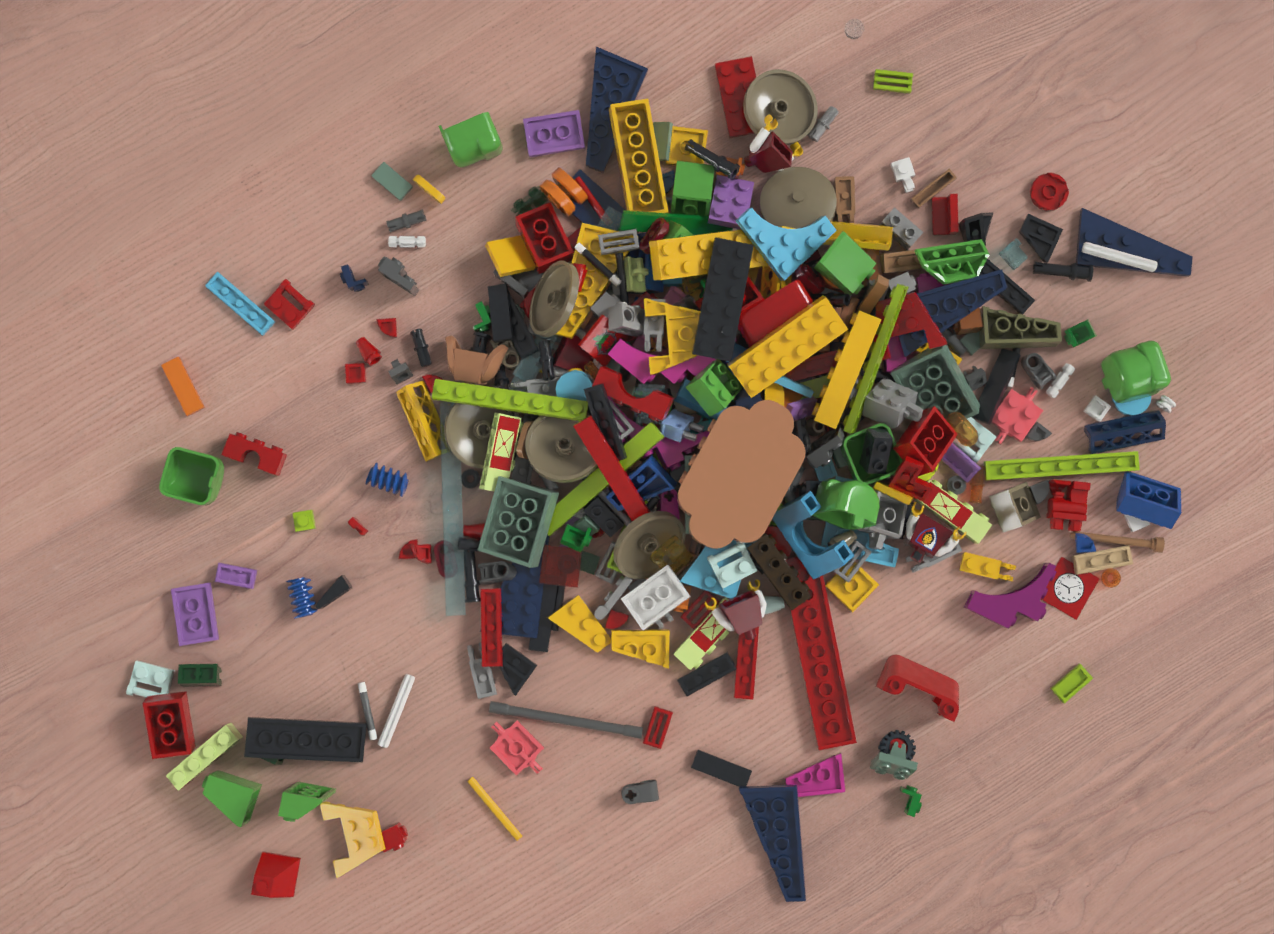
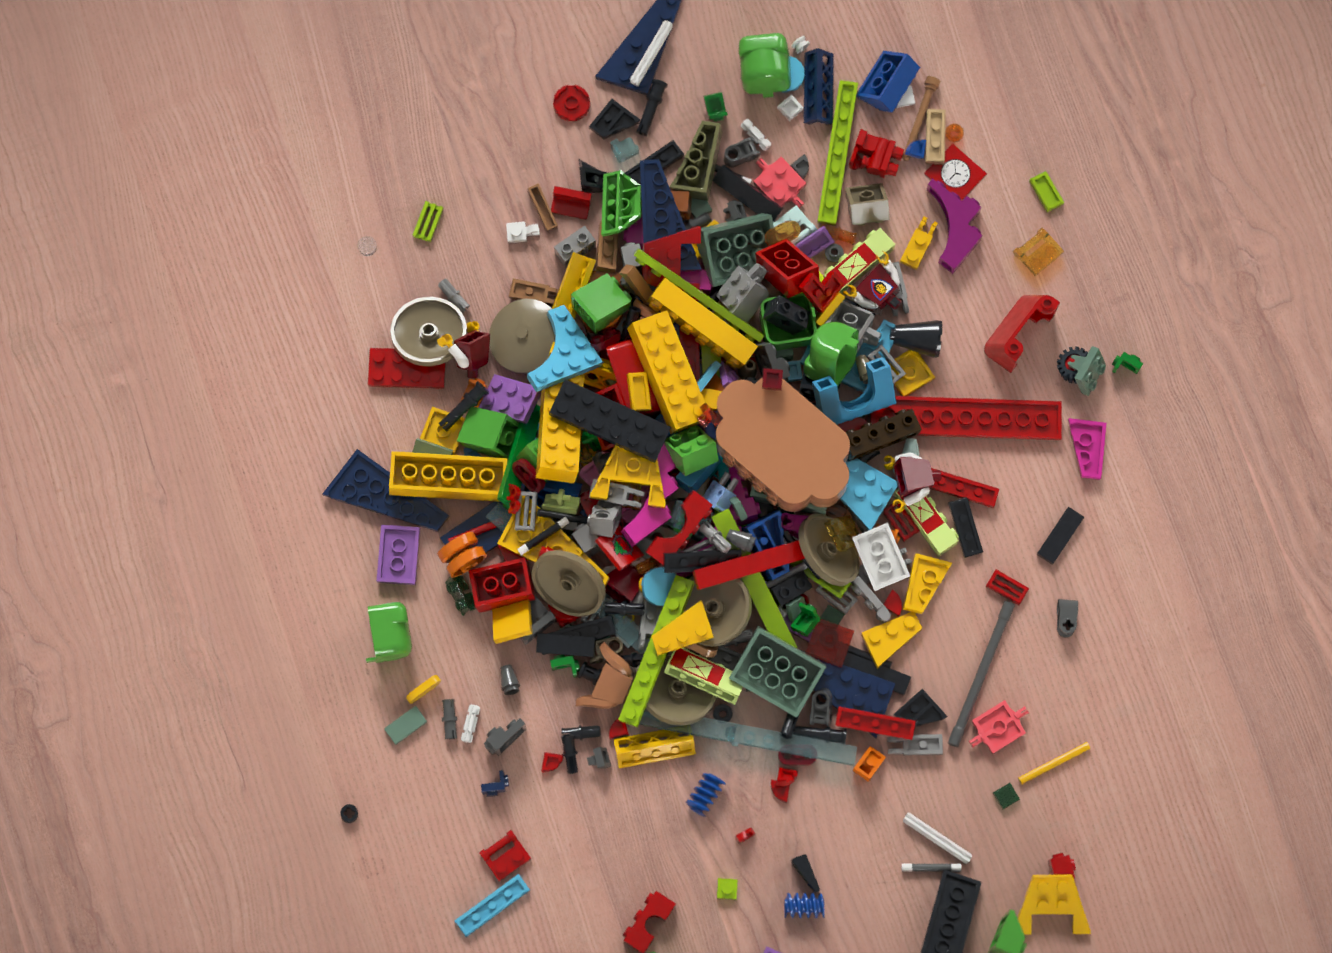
camera: 75 degrees left, 10 degrees down
(291, 147) = (353, 809): none -> black bush
(355, 373) = (590, 804): red tile -> none
(368, 351) = (572, 785): red cone -> none
(398, 341) = (569, 753): none -> black axle
(450, 629) = (869, 763): none -> orange slope
(452, 768) = (1006, 796): none -> clear green tile
(456, 268) = (509, 681): none -> dark grey cone
(474, 530) = (776, 718): red cone -> none
(532, 421) = (684, 631): none -> yellow wing
(623, 228) = (515, 493): none -> red piece
(631, 430) = (715, 537): none -> light grey axle
(634, 456) = (742, 540): none -> dark grey cone
(668, 445) = (738, 508): none -> sand green tile
(735, 570) = (871, 475): light aqua plate -> none
(749, 395) = (708, 416): none -> clear red tile
(760, 322) = (639, 391): none -> yellow tile
(779, 829) = (1124, 492): dark blue wing -> none
(798, 449) = (772, 379): none -> dark red tile
(887, 587) = (919, 337): none -> black cone
(1004, 694) = (1042, 256): none -> clear yellow plate
(1040, 491) = (857, 177): dark grey tile -> none

